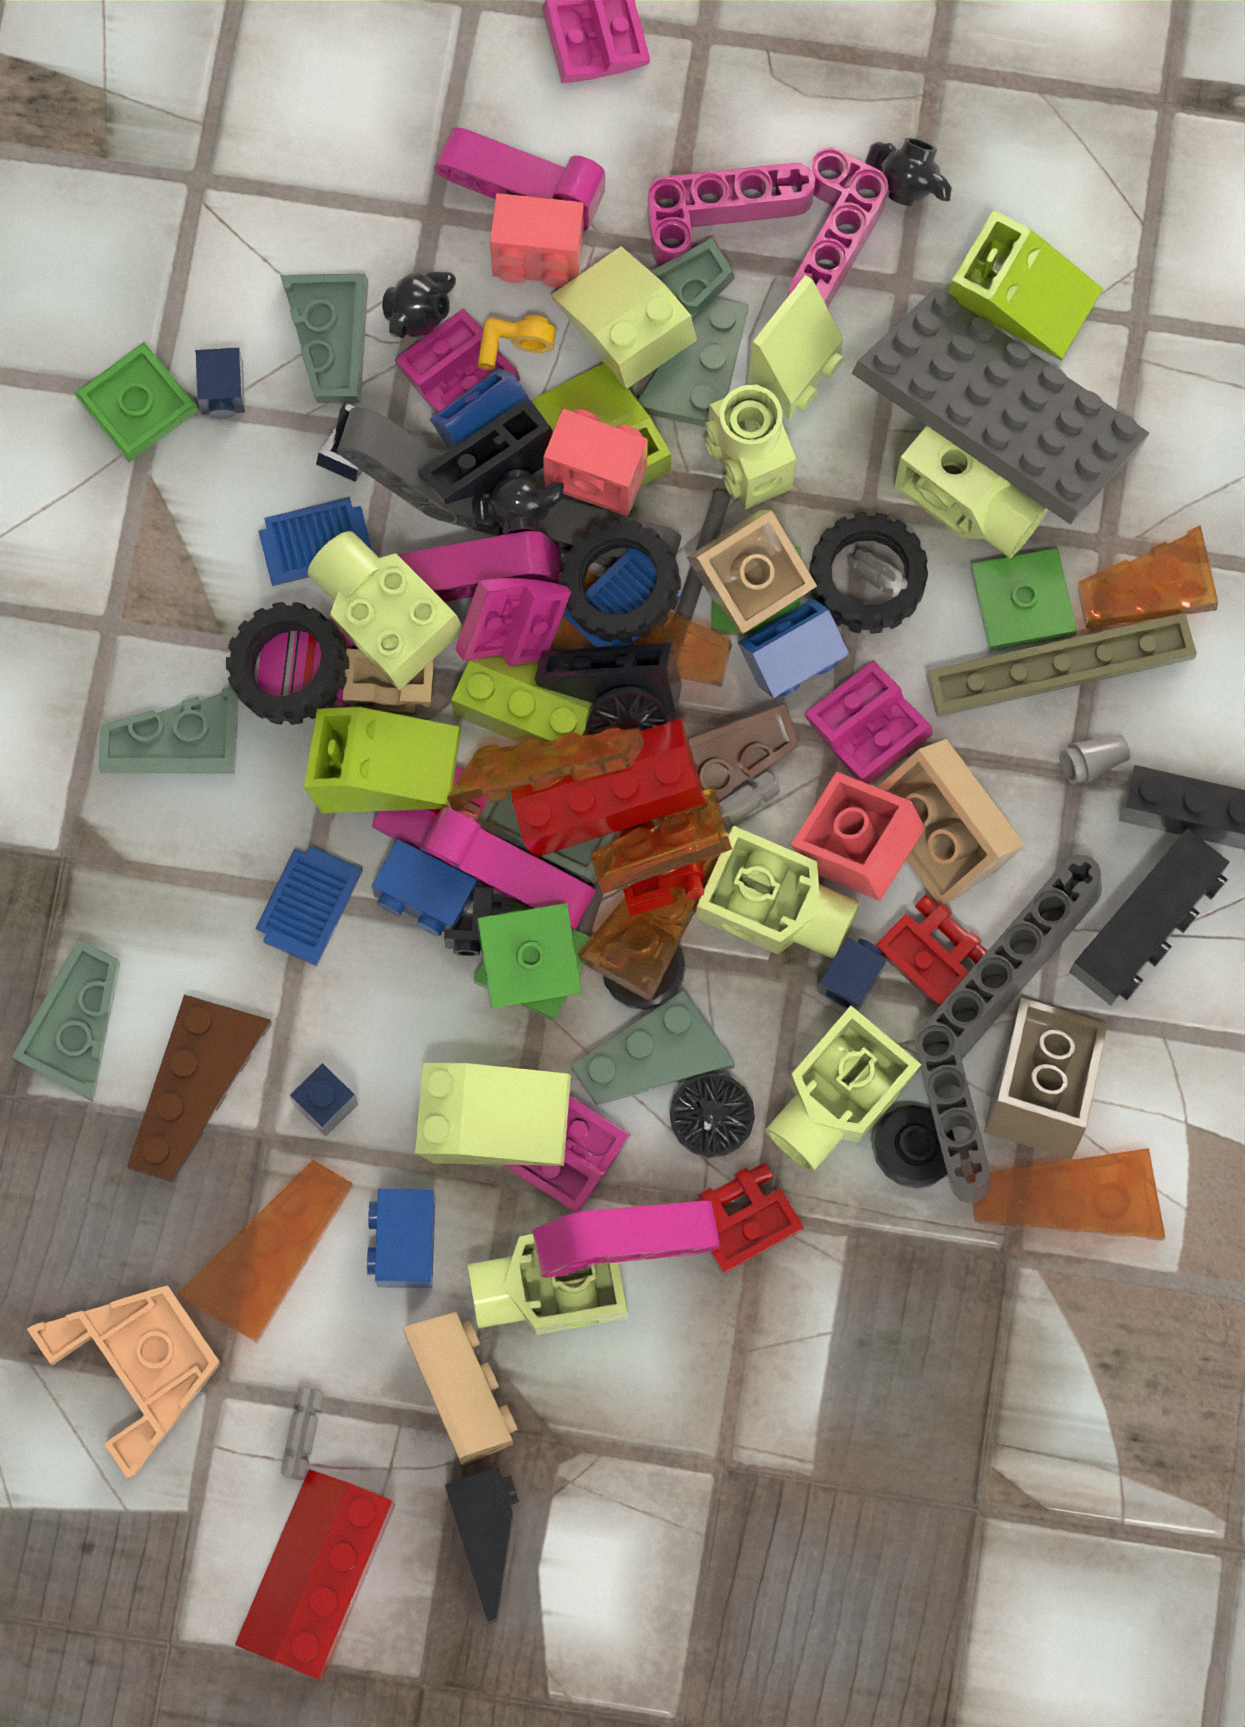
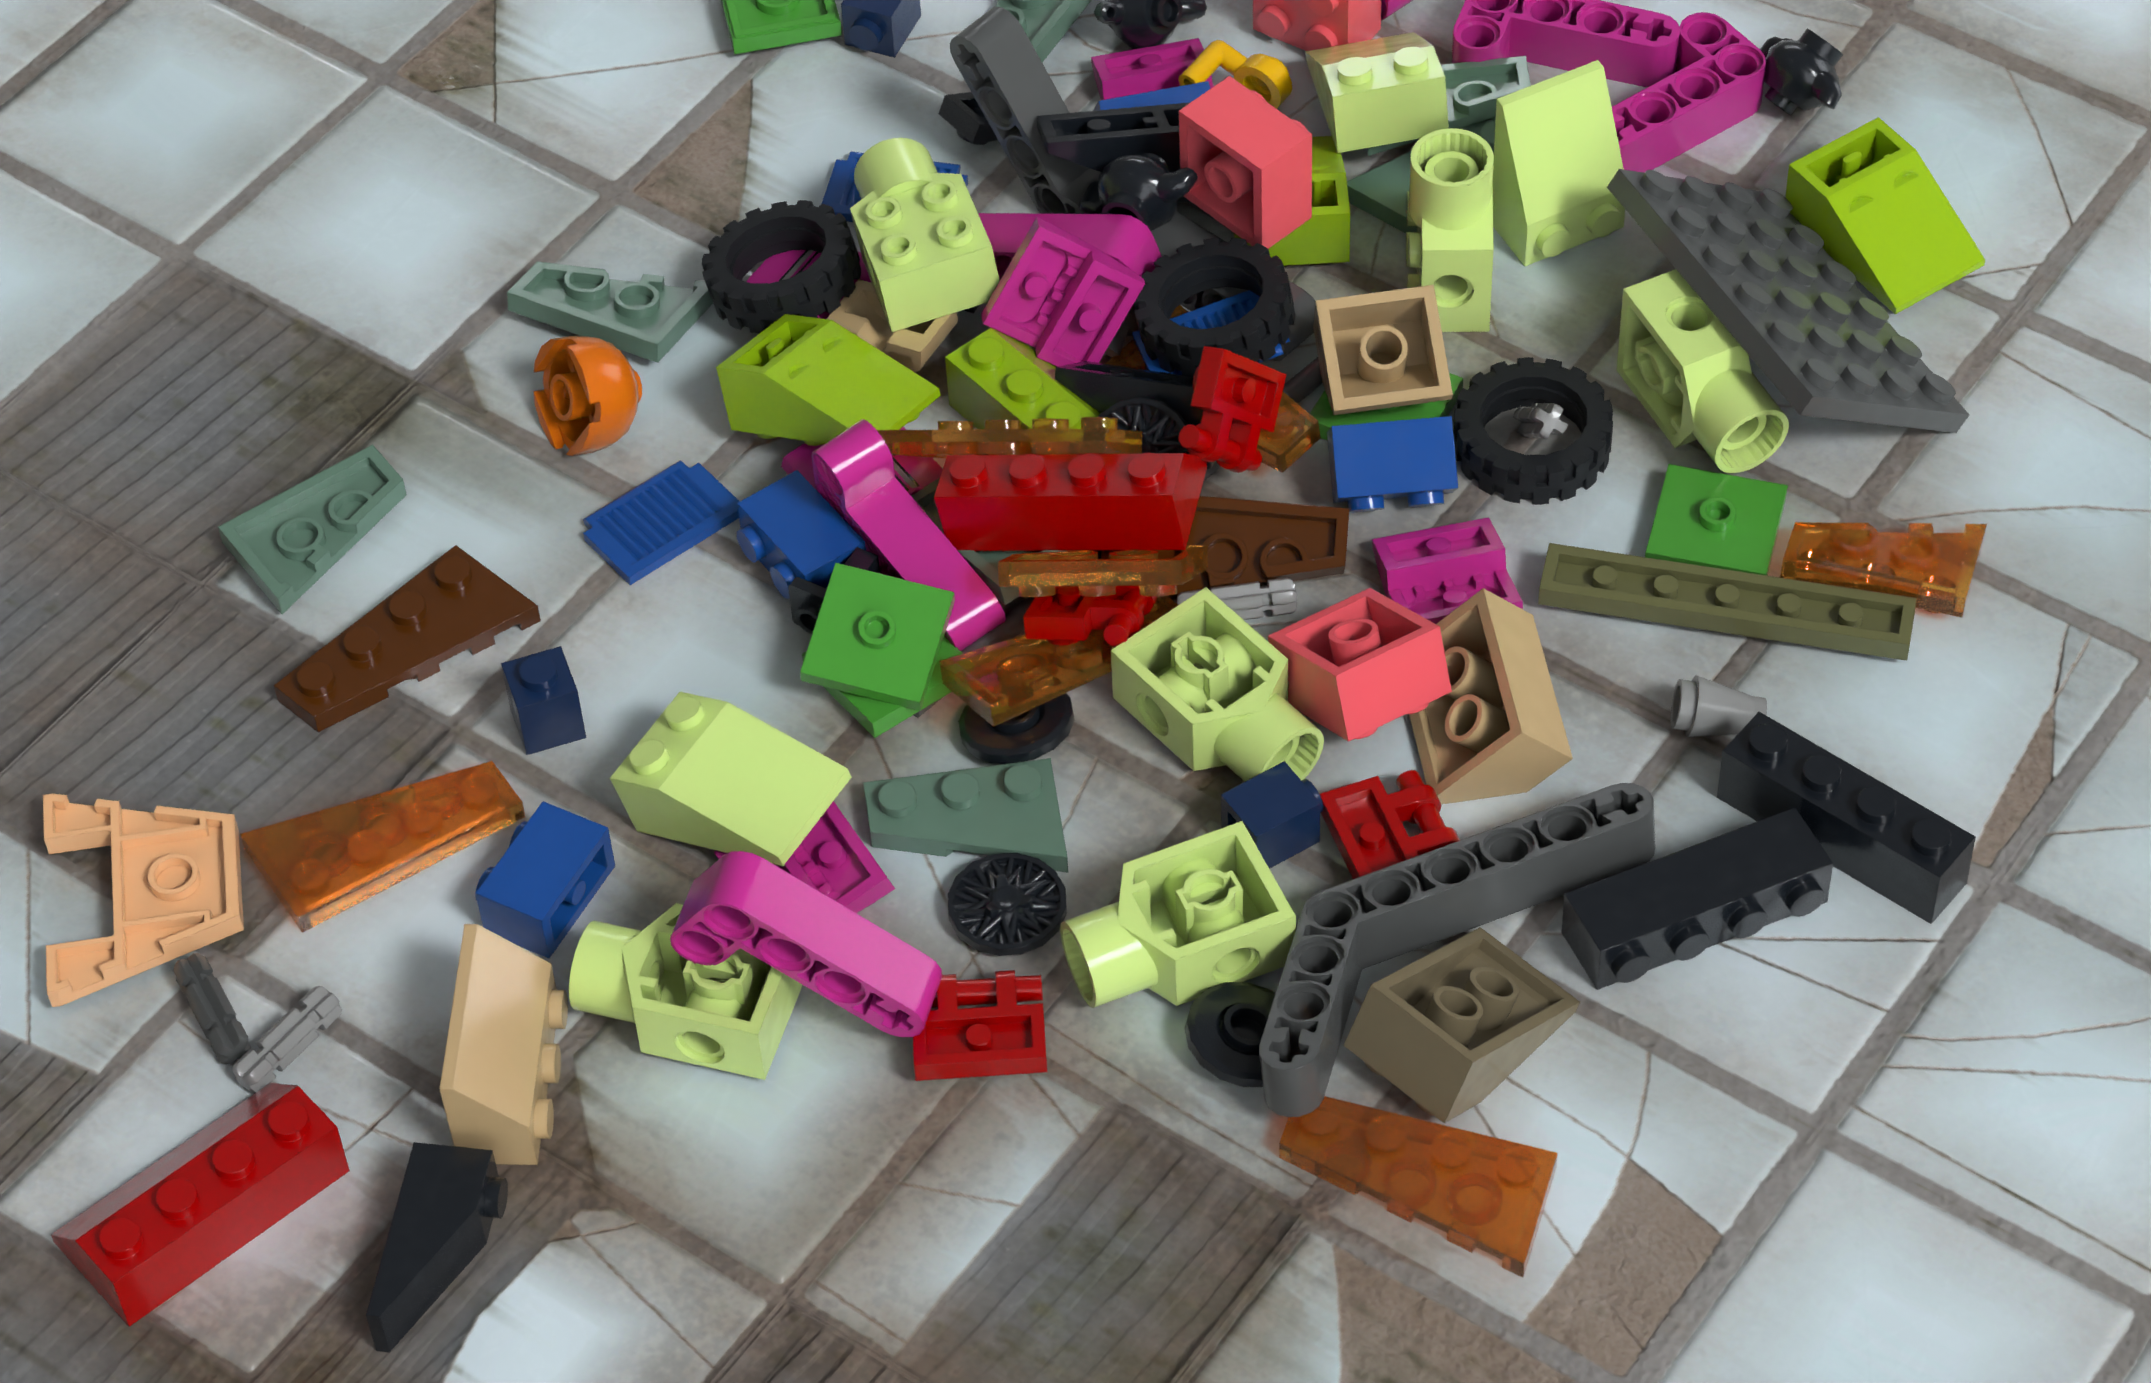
camera: 30 degrees right, 25 degrees down
(207, 832) = (586, 393): none -> orange cylinder
(237, 1433) = (211, 1008): none -> dark grey axle
(683, 674) = (1237, 404): none -> red plate

